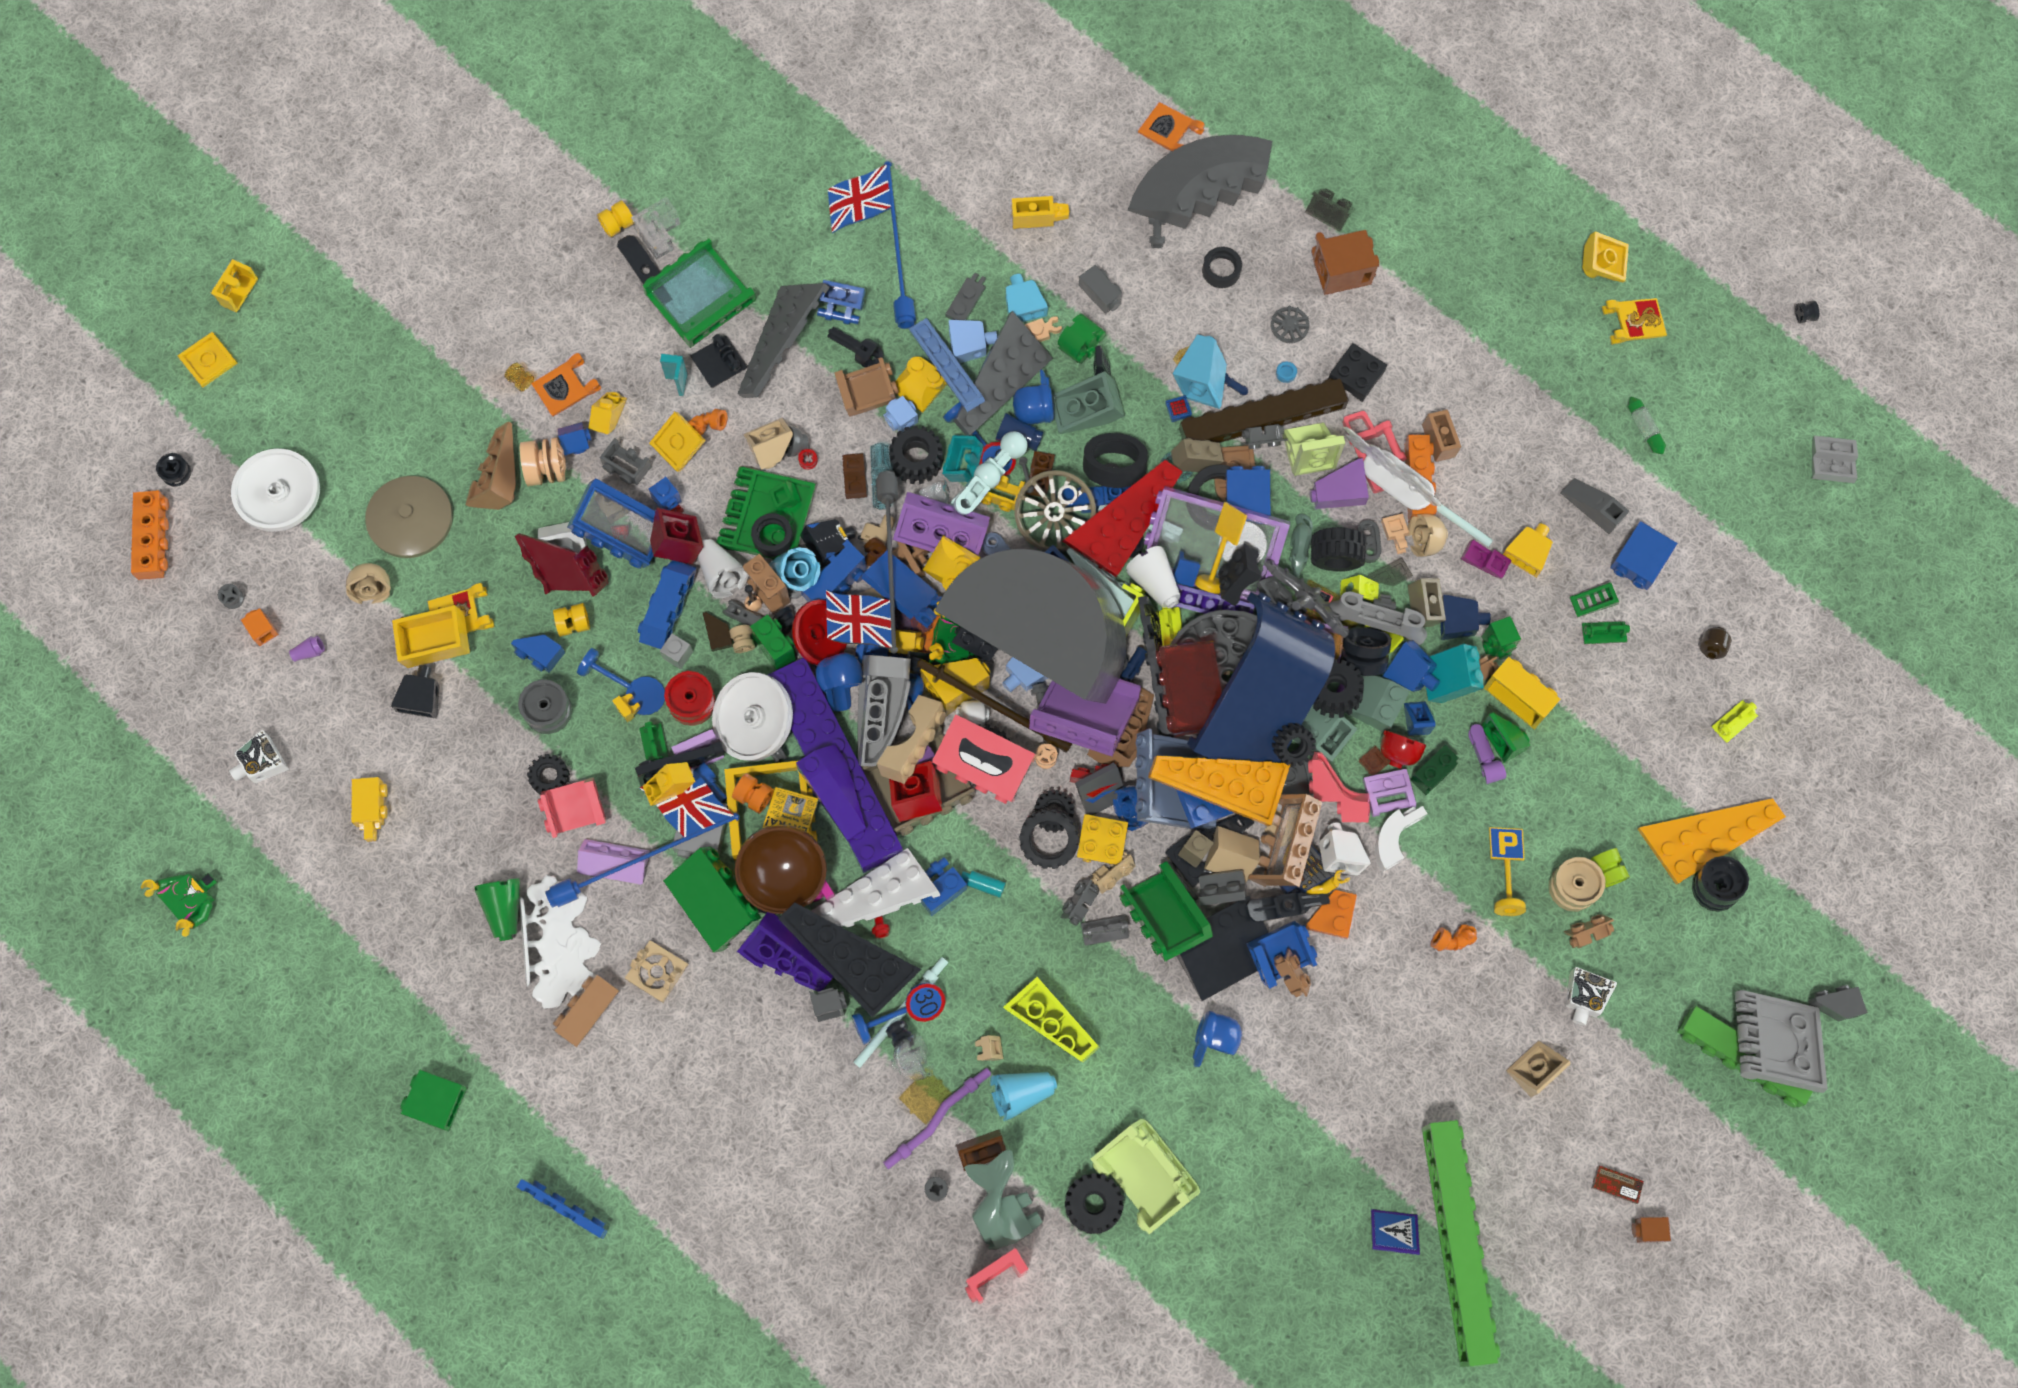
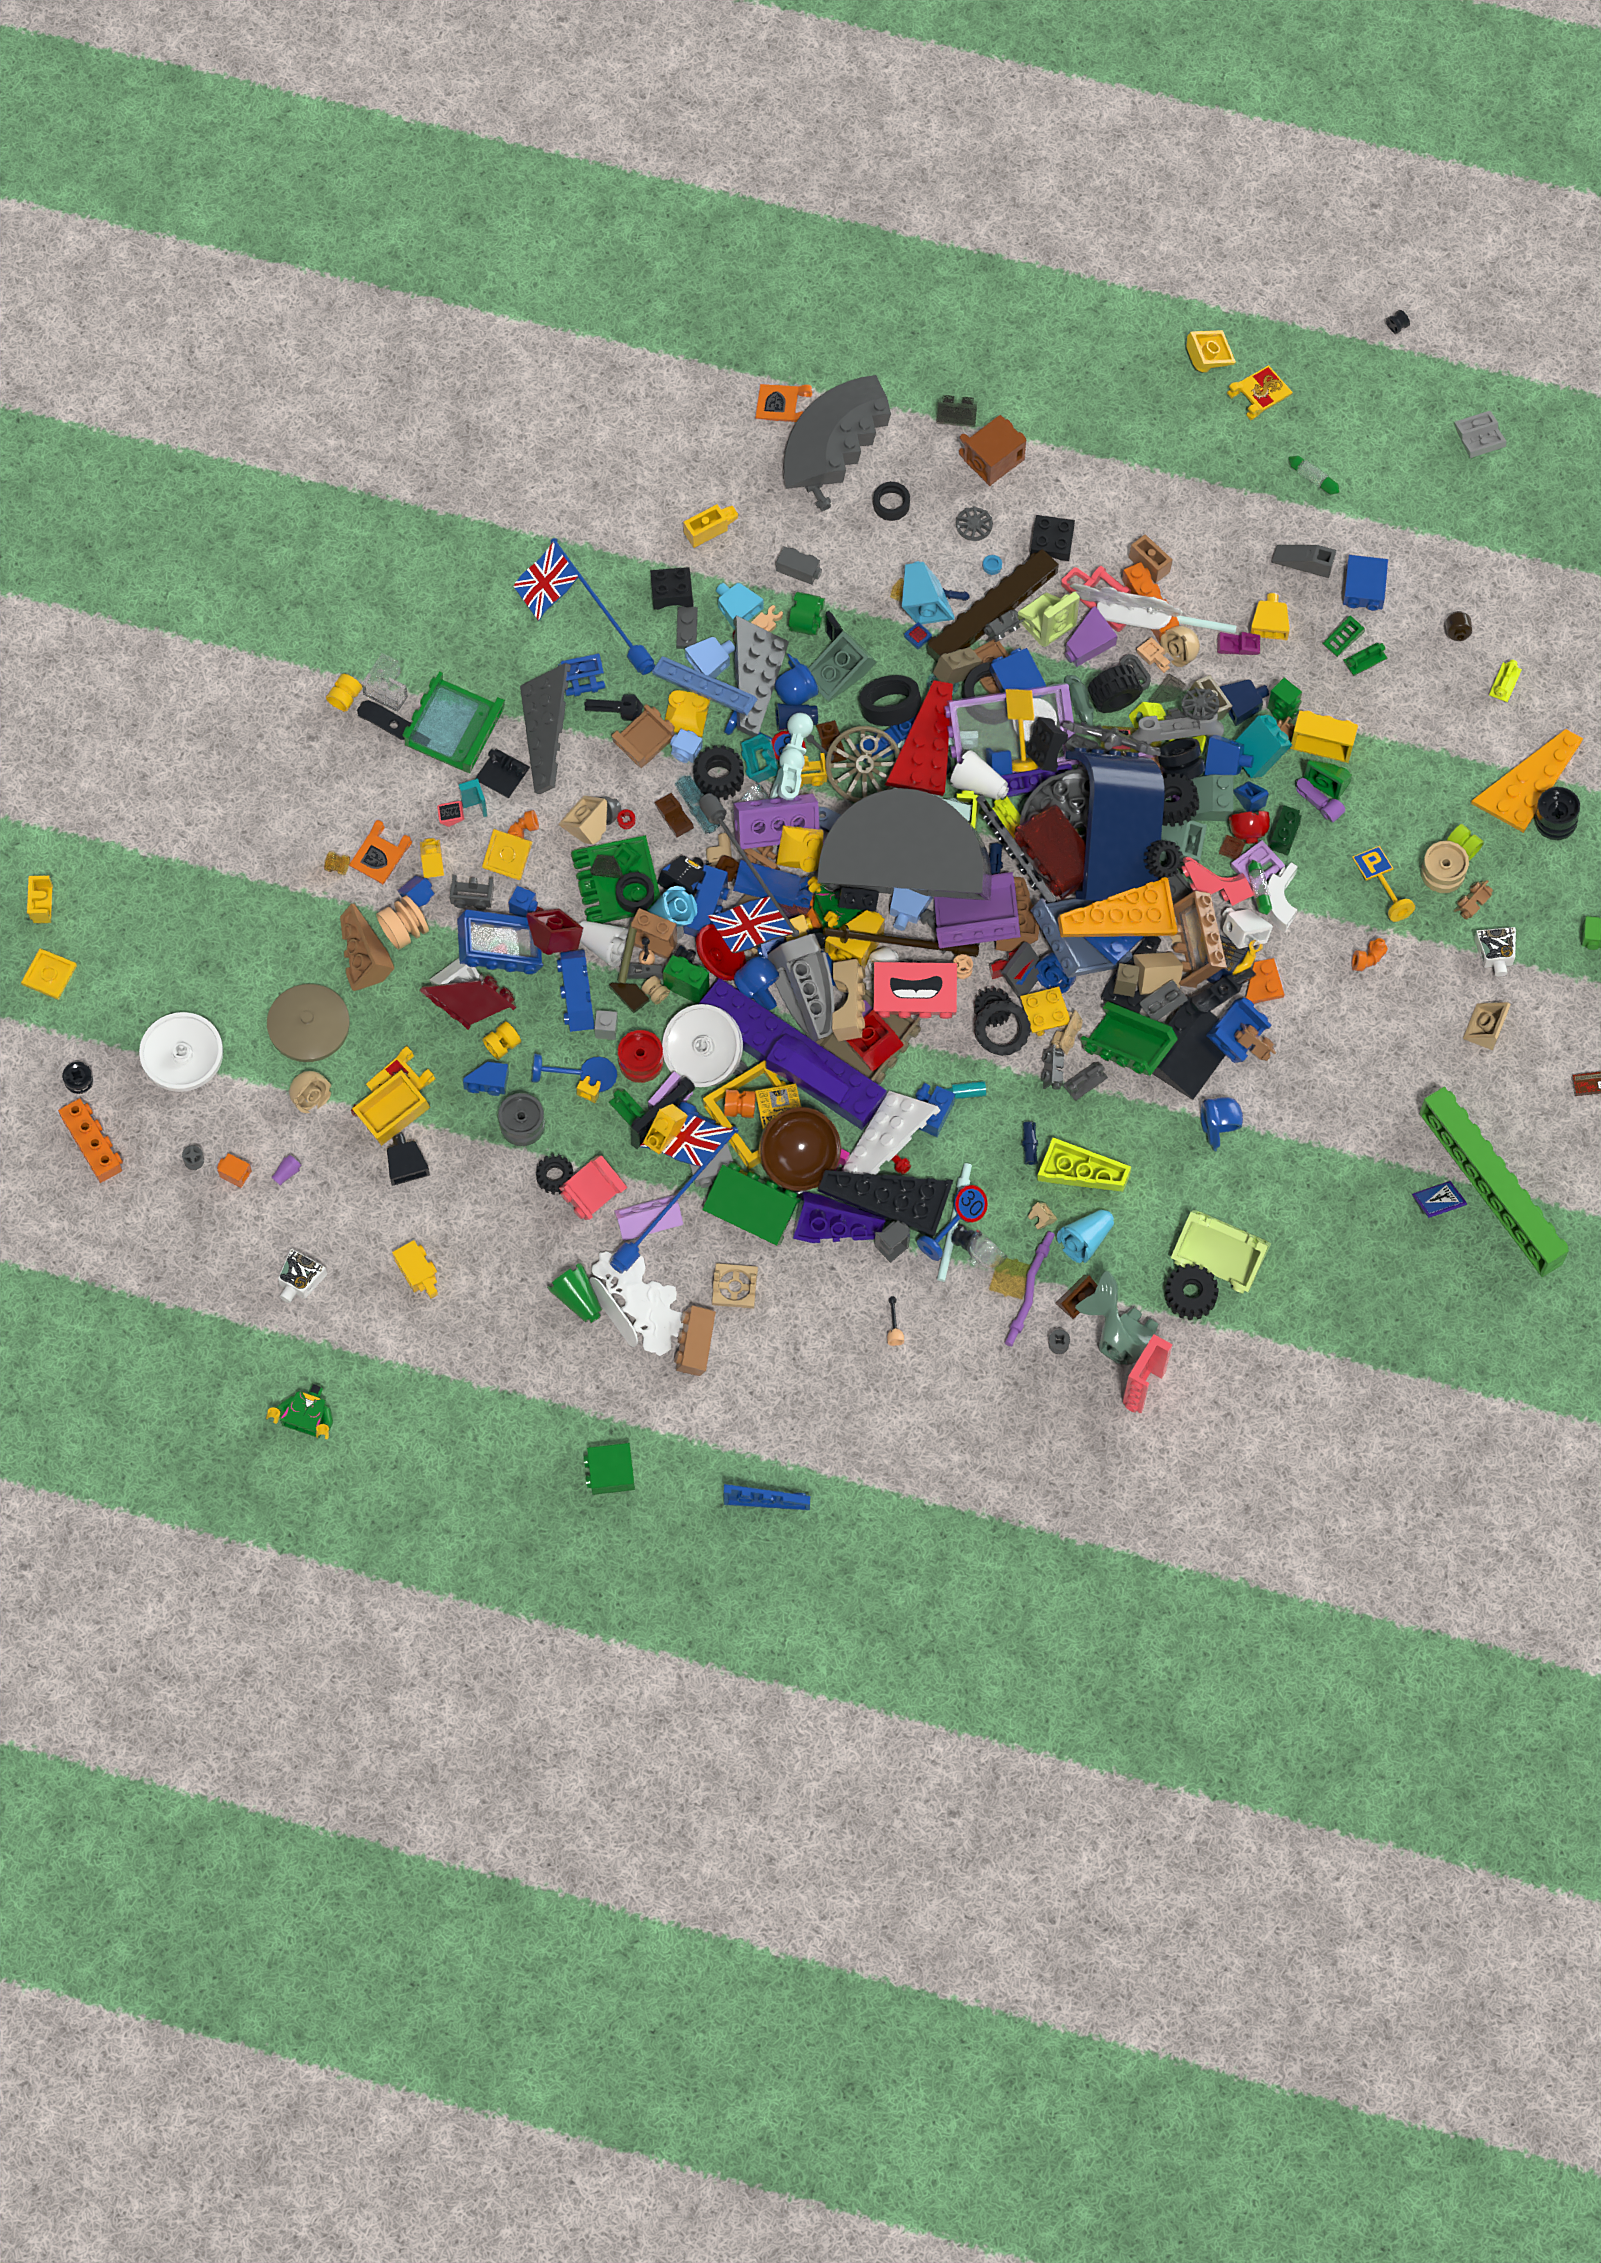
camera: 25 degrees left, 5 degrees down
(648, 377) = (450, 813): none -> slope
(729, 594) = (627, 955): none -> olive bar
(759, 497) = (606, 867): none -> clear smoke tile
(781, 1101) = (895, 1336): none -> light nougat hinge
(969, 256) = (671, 587): none -> black brick
(1016, 968) = (1030, 1143): none -> dark blue pin
(1378, 817) = (1259, 887): none -> piece
(1413, 604) = (1200, 703): none -> dark grey wheel

